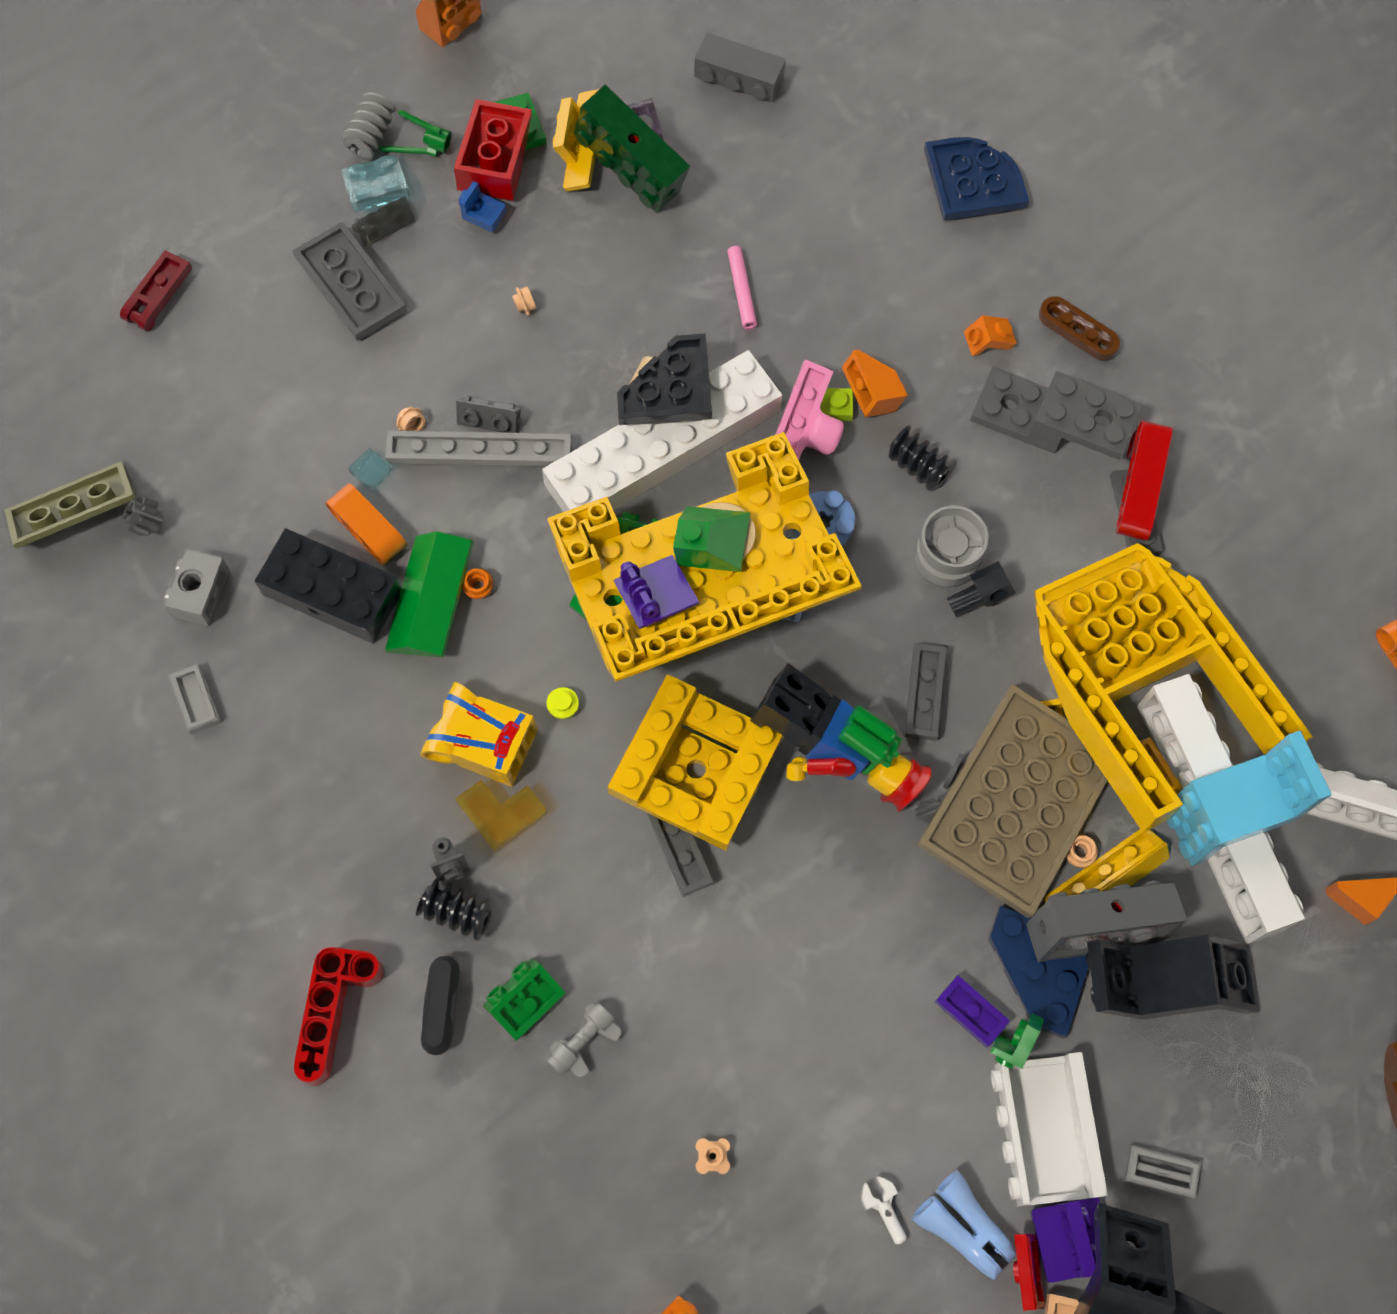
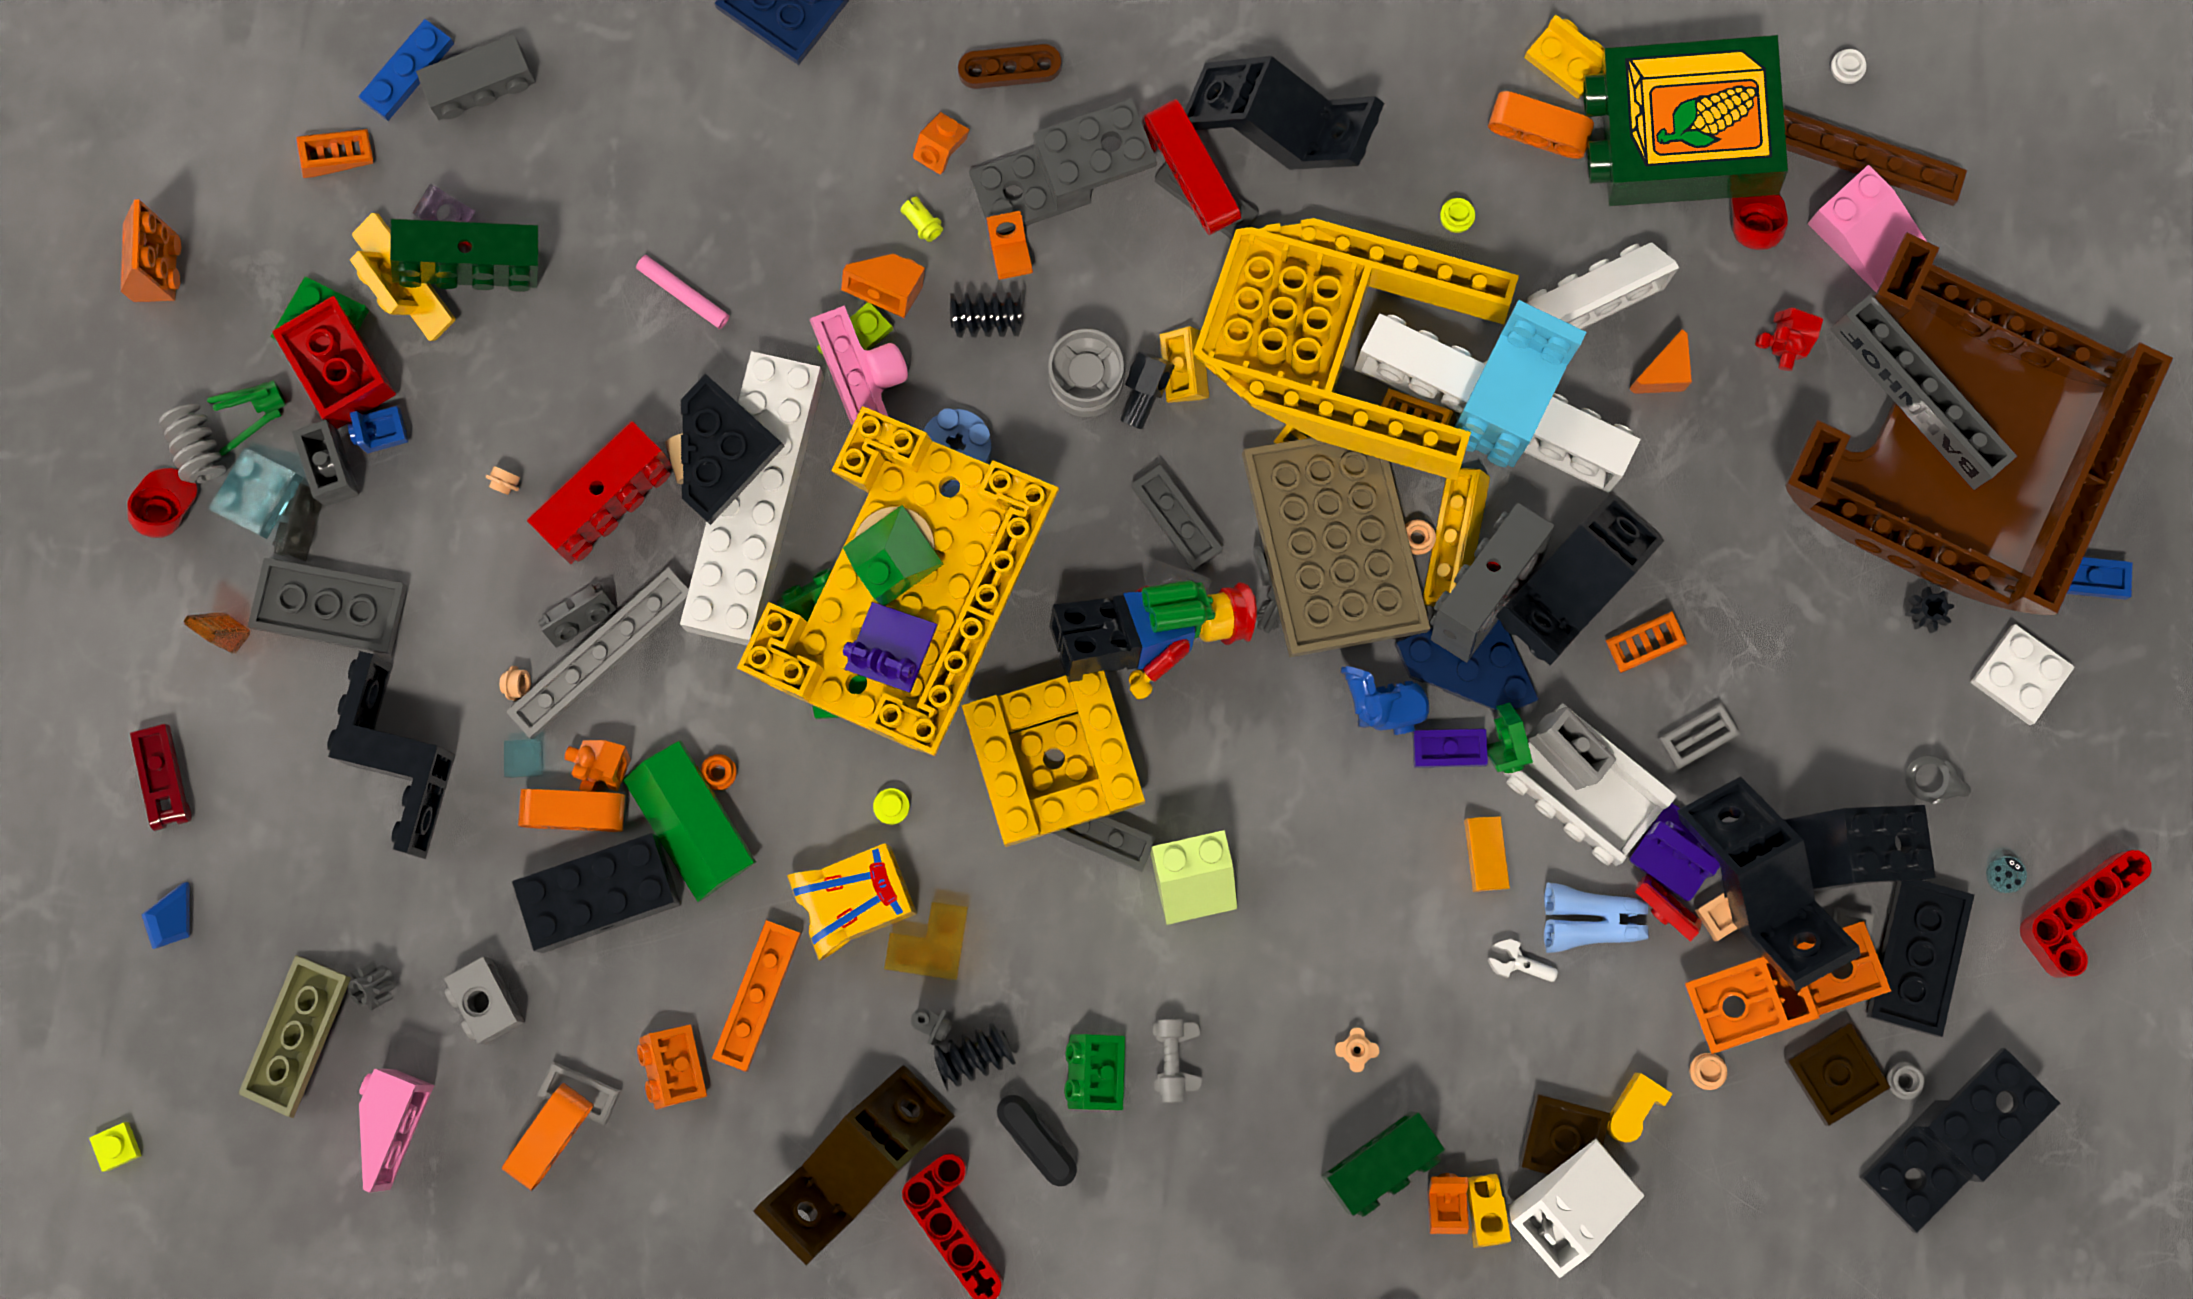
camera: 40 degrees left, 10 degrees up
(62, 604) = (388, 1120): none -> bright pink slope
(74, 372) = (169, 917): none -> blue piece
(146, 703) = (547, 1136): none -> orange beam
(264, 735) = (671, 1067): none -> orange bracket
(273, 236) = (219, 630): none -> clear orange slope
(285, 370) = (362, 747): none -> black bracket
(307, 901) = (854, 1164): none -> dark brown bracket
(315, 141) = (160, 503): none -> red cap
(360, 741) = (756, 996): none -> orange plate
(412, 511) = (598, 762): none -> orange piece
(431, 199) = (325, 463): none -> dark grey brick
(572, 353) = (601, 493): none -> red brick
(612, 30) = (324, 166): none -> orange slope
(653, 1252) = (1384, 1164): none -> dark green brick
(689, 34) = (399, 76): none -> blue plate
(712, 928) = (1194, 877): none -> yellowish green slope
(931, 1109) = (1486, 854): none -> light orange slope
(933, 376) = (927, 226): none -> neon yellow pin
(949, 940) = (1388, 707): none -> blue head
(972, 436) = (1009, 250): none -> orange bracket
(1019, 609) = (1189, 375): none -> yellow slope
(1059, 1089) = (1571, 748): none -> light grey brick
(1213, 1070) = (1673, 627): none -> orange slope
(1238, 499) = (1283, 113): none -> black bracket
(1302, 668) = (1457, 215): none -> neon yellow plate

